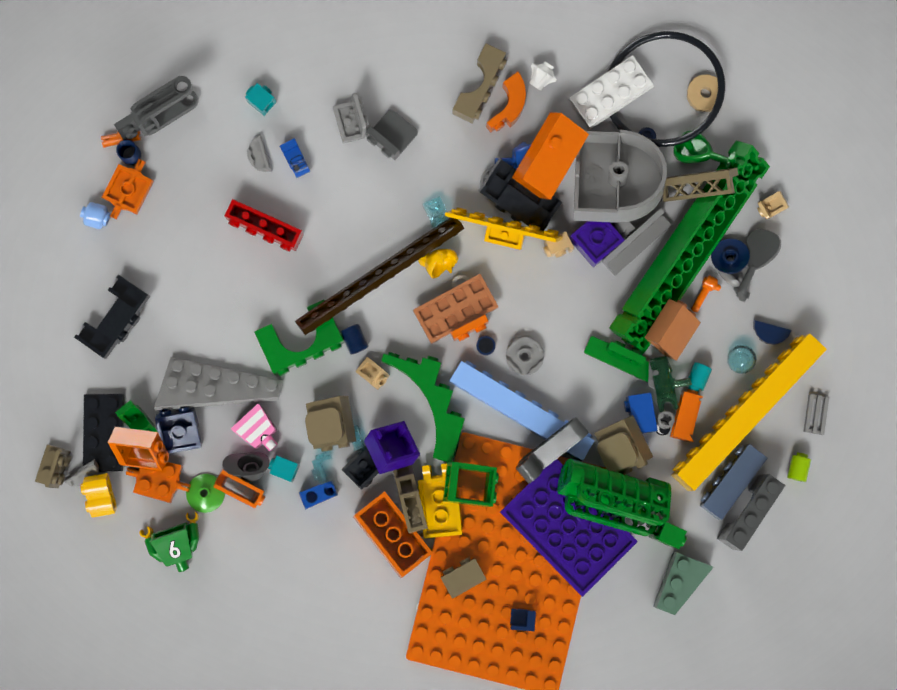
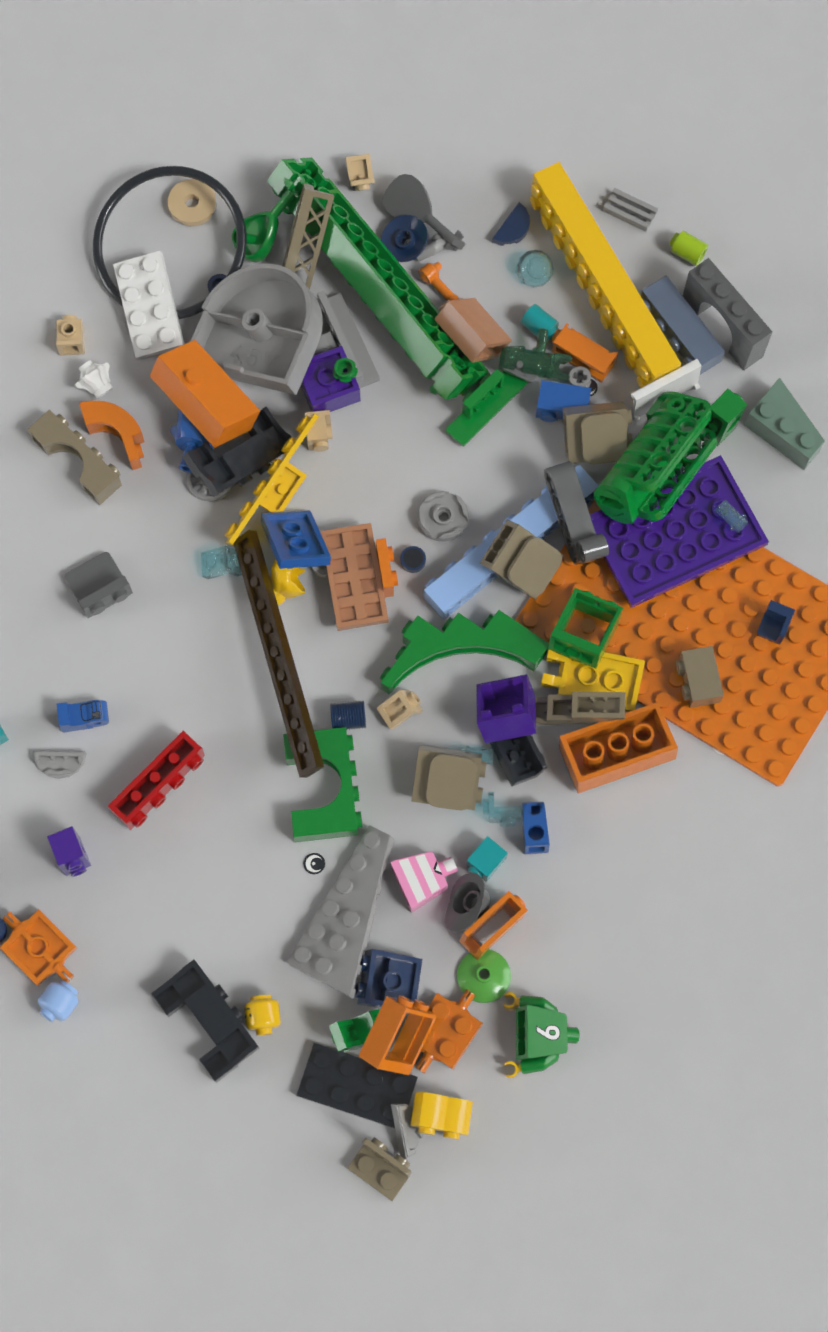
camera: 70 degrees left, 10 degrees down
(128, 353) = (262, 1014): none -> yellow head
(194, 185) = (69, 852): none -> dark purple brick
(245, 352) = (314, 863): none -> black sticker
(350, 119) = (59, 623): light grey bracket -> none
(467, 258) = (295, 539): none -> blue plate
(505, 423) = (522, 559): none -> dark tan brick
(565, 50) = (73, 342): none -> tan brick
(590, 564) = (731, 516): none -> clear light blue pin
(599, 249) = (340, 365): none -> green plate
(677, 485) = (676, 381): none -> white door

